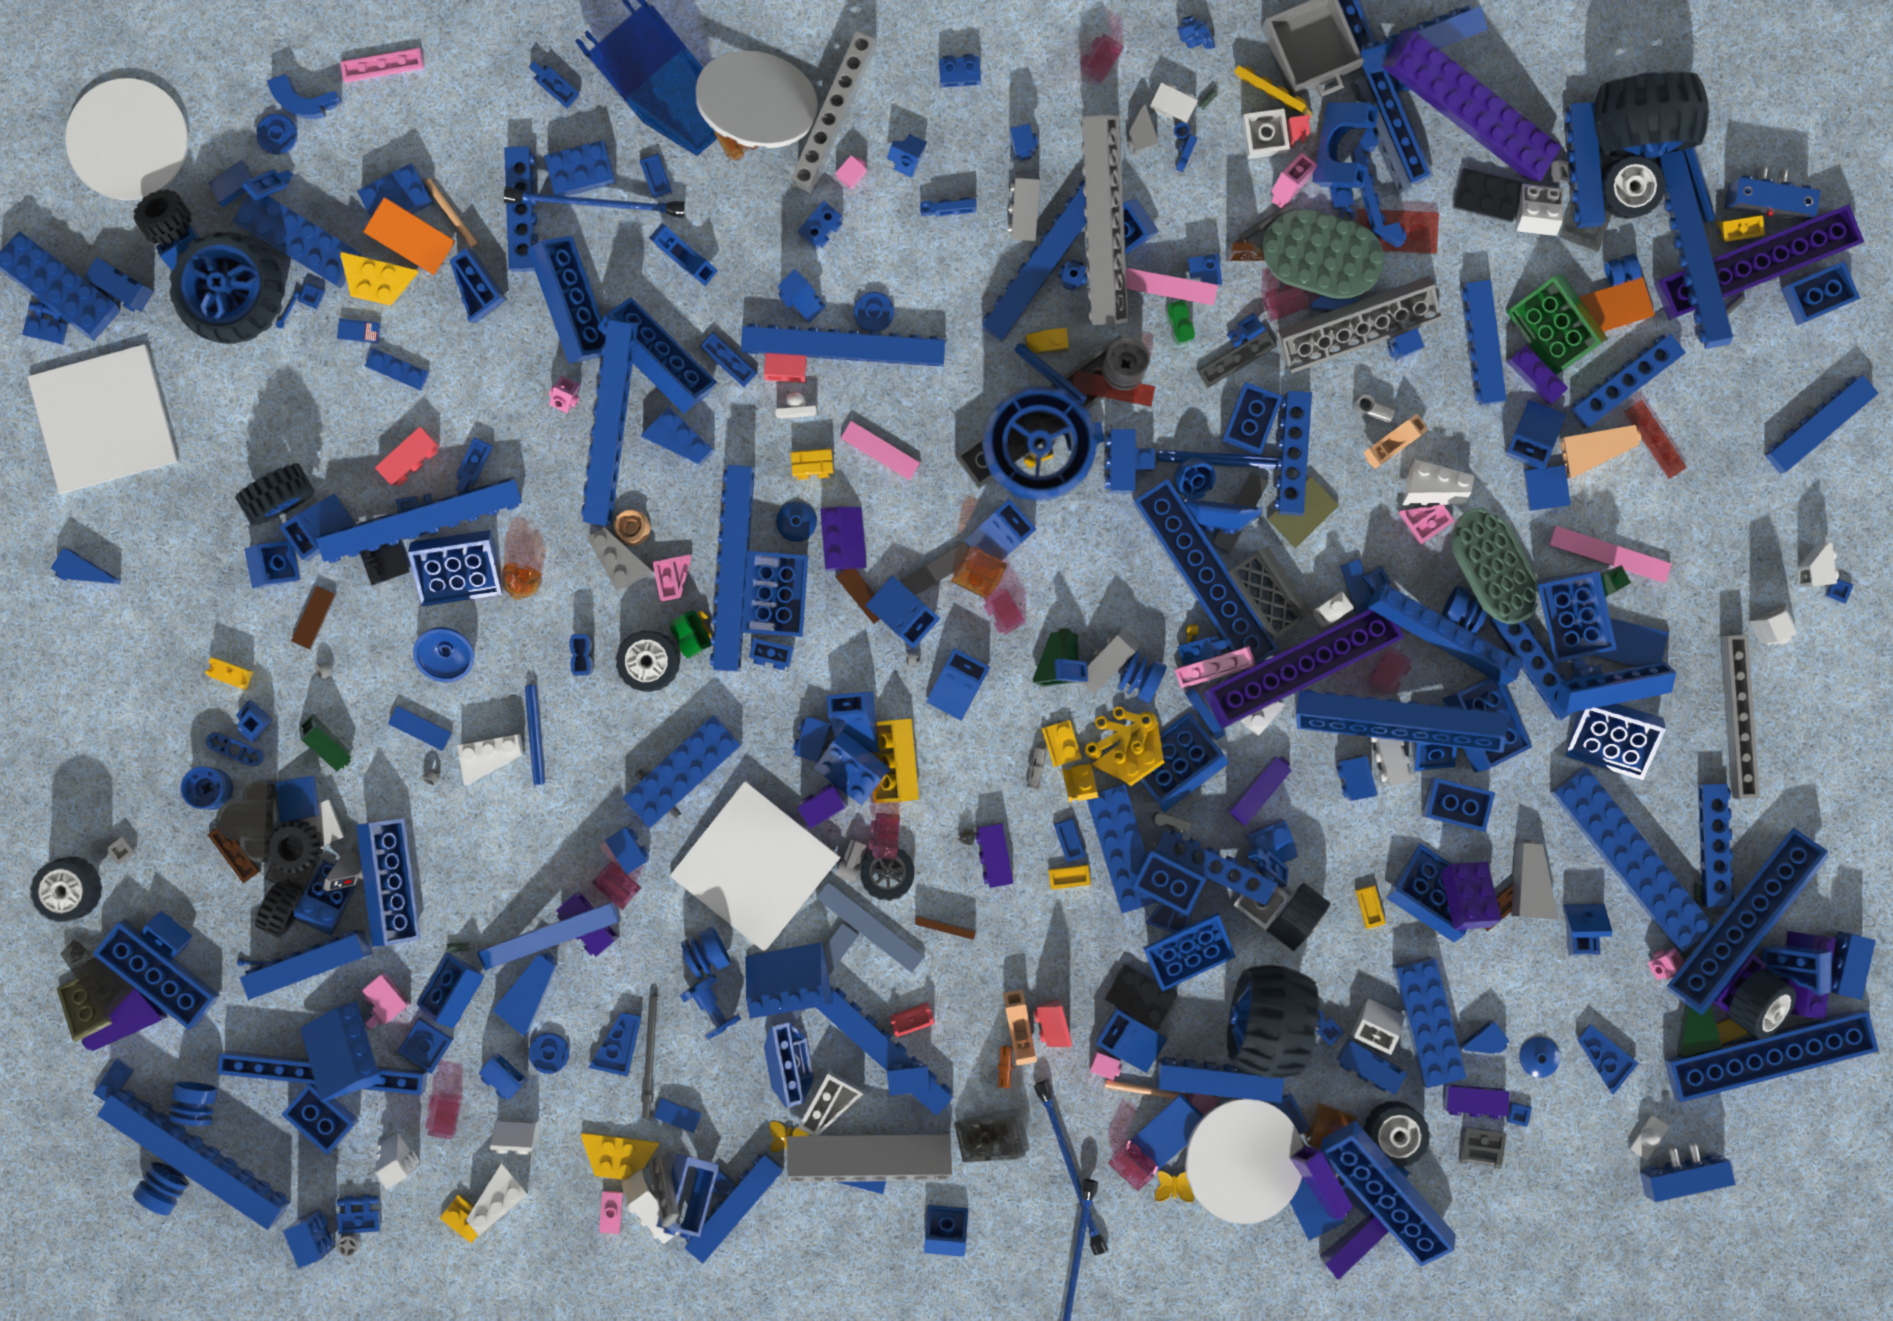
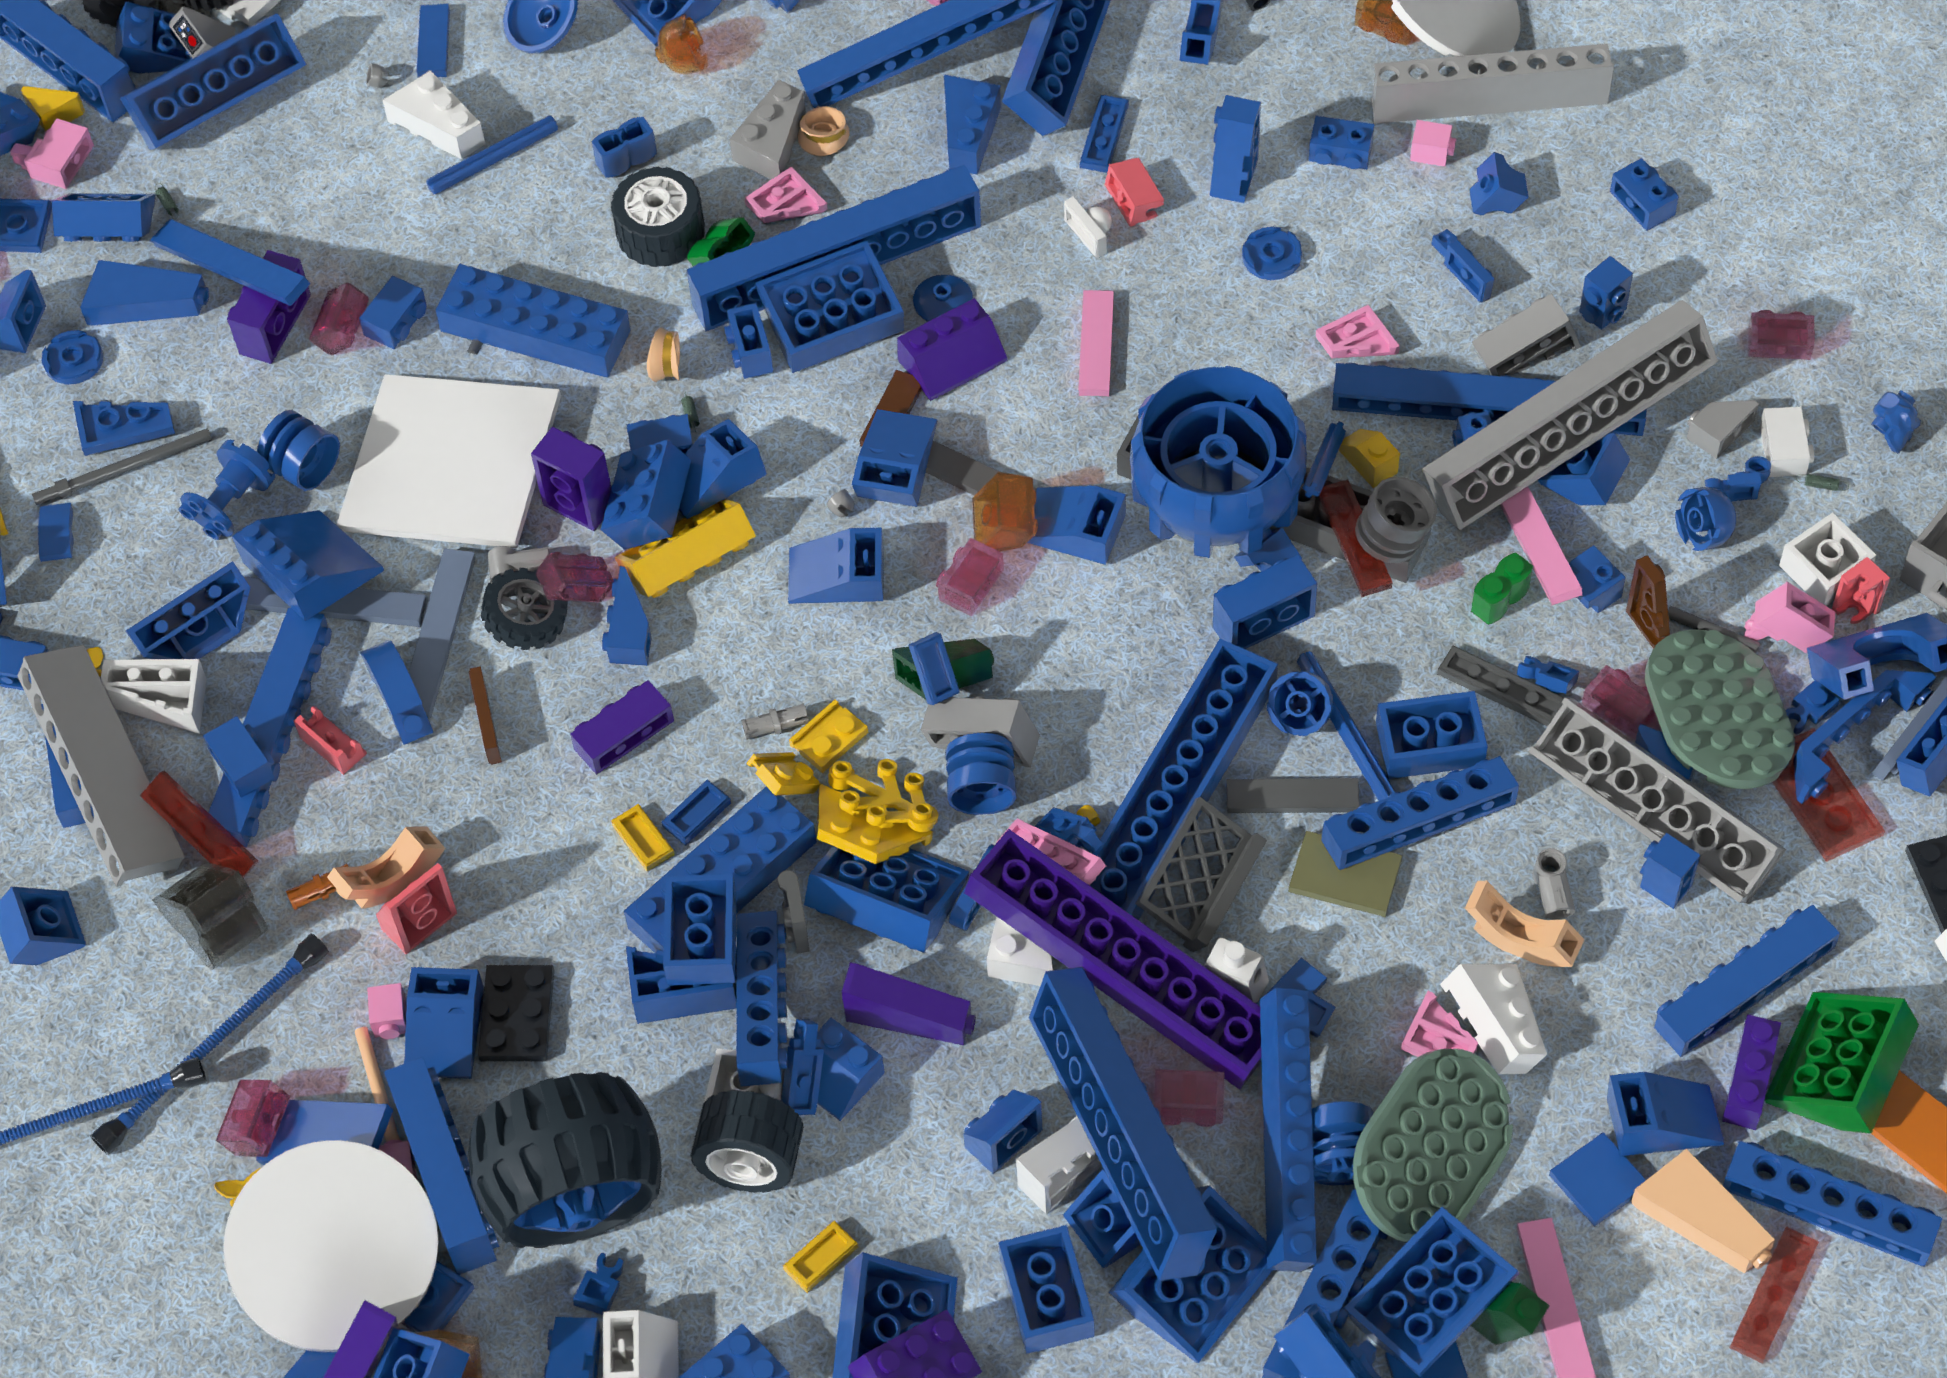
camera: 65 degrees right, 30 degrees down
(344, 989) = (53, 105): none -> yellow slope
(754, 707) = (664, 355): none -> light nougat piece
(796, 710) = (690, 409): none -> sand green piece
(812, 463) = (1029, 274): yellow brick -> none
(843, 346) = (1207, 241): blue brick -> none
(900, 970) = (397, 691): none -> blue arch
(932, 819) = (629, 629): none -> blue slope
(938, 1119) = (197, 825): none -> clear red tile
(963, 298) = (1357, 336): none -> bright pink wing
(967, 836) = (621, 678): clear smoke hinge -> none
(1145, 459) = (1286, 636): blue brick -> none
(1189, 952) = (616, 1017): blue slope -> none
(1200, 181) = (1705, 511): none -> blue cylinder
(1222, 515) = (1272, 765): blue wedge -> none
(1281, 93) = (1892, 545): yellow wing -> none

